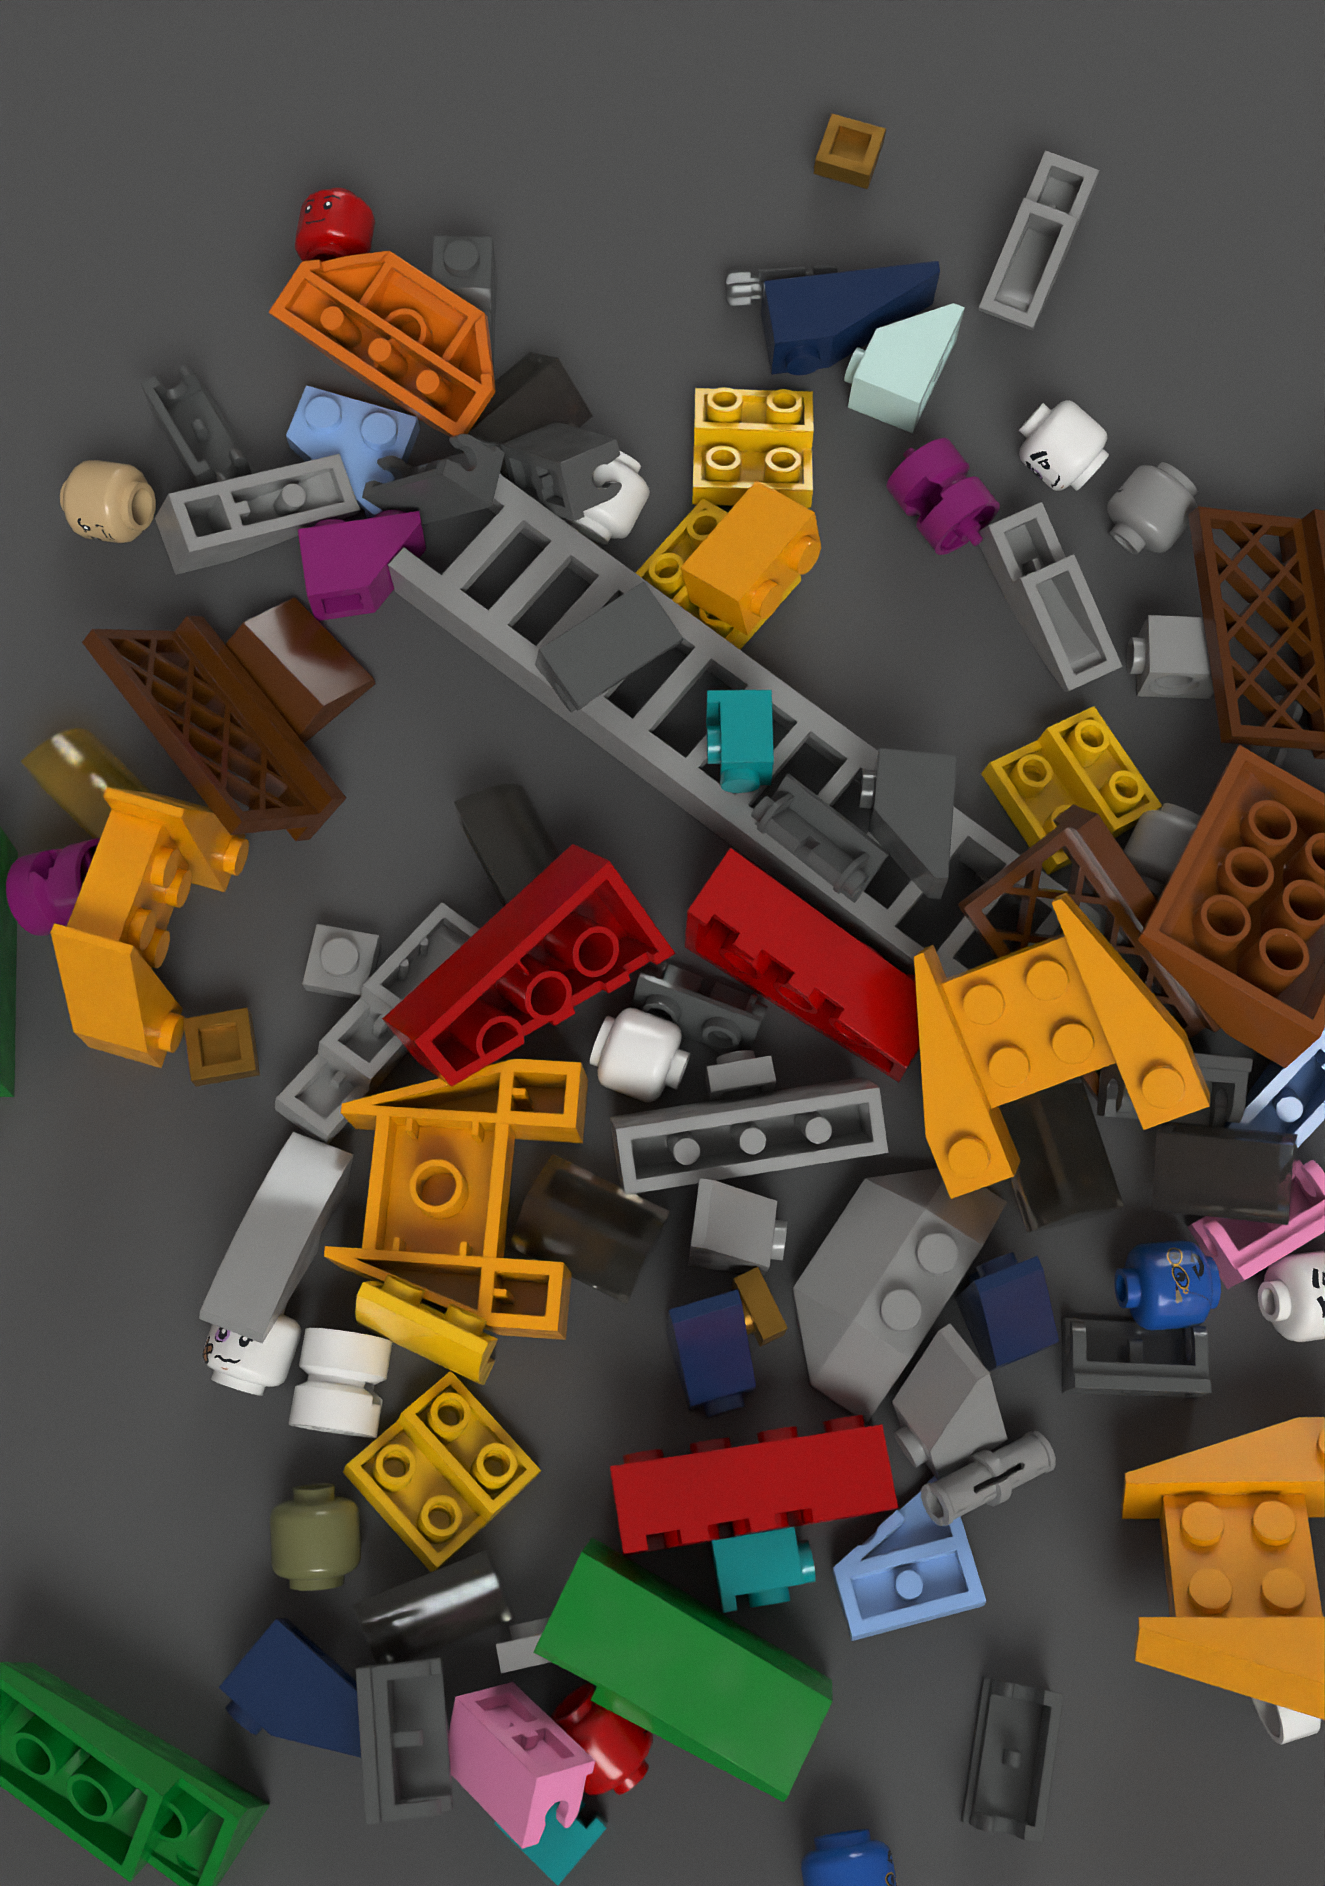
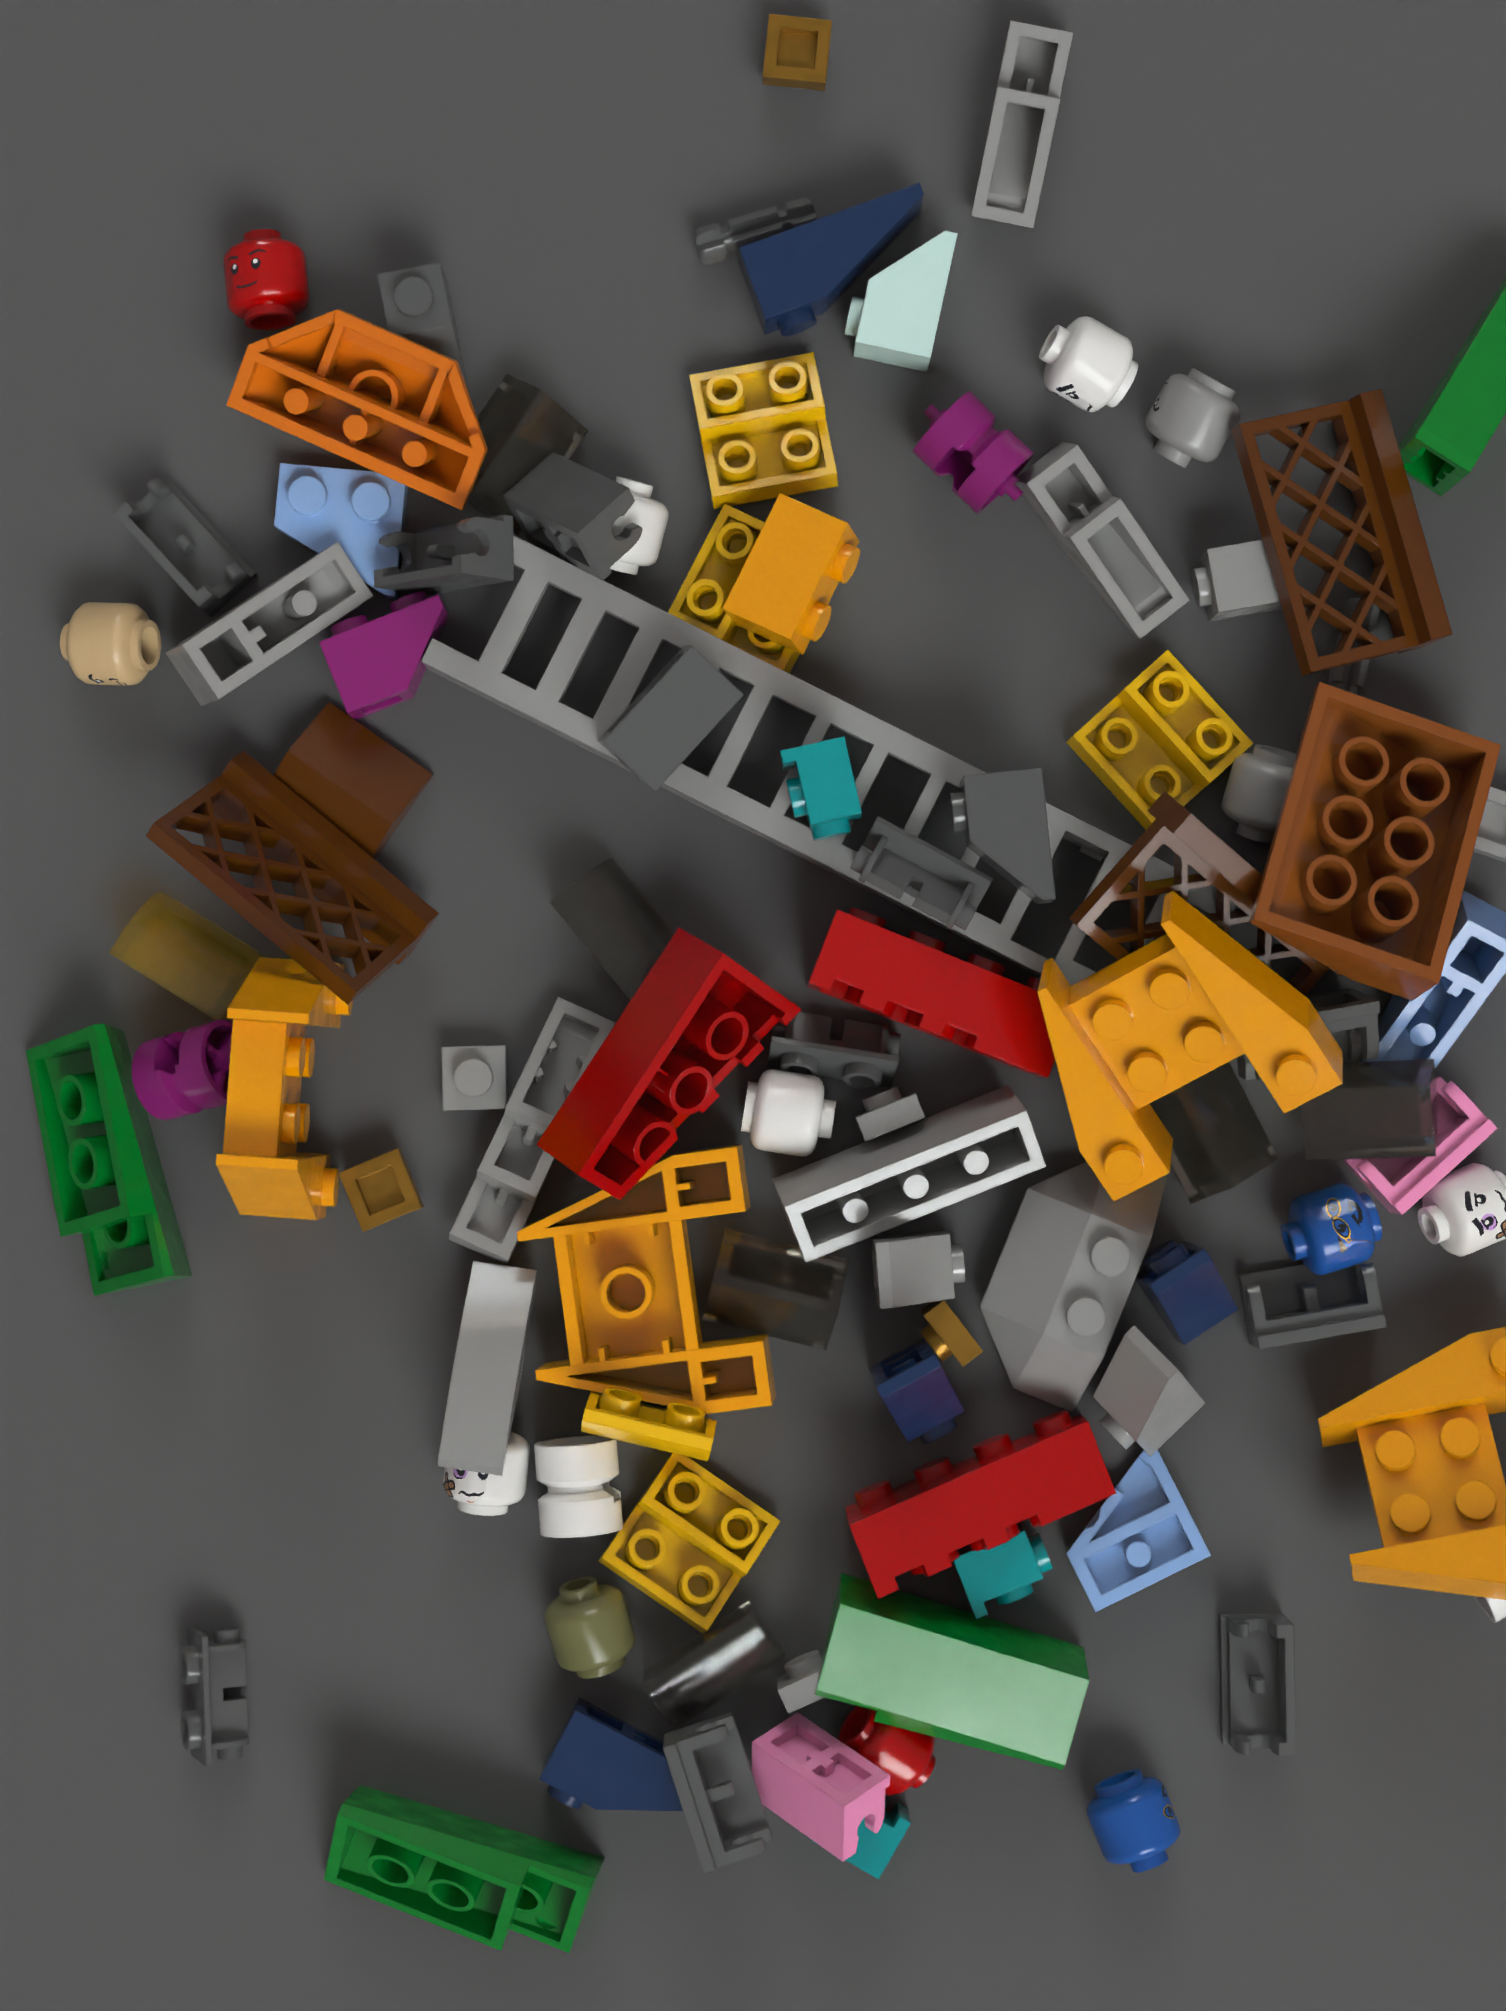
camera: 10 degrees left, 15 degrees up
(988, 1478) = (1193, 1444): light grey pin -> none

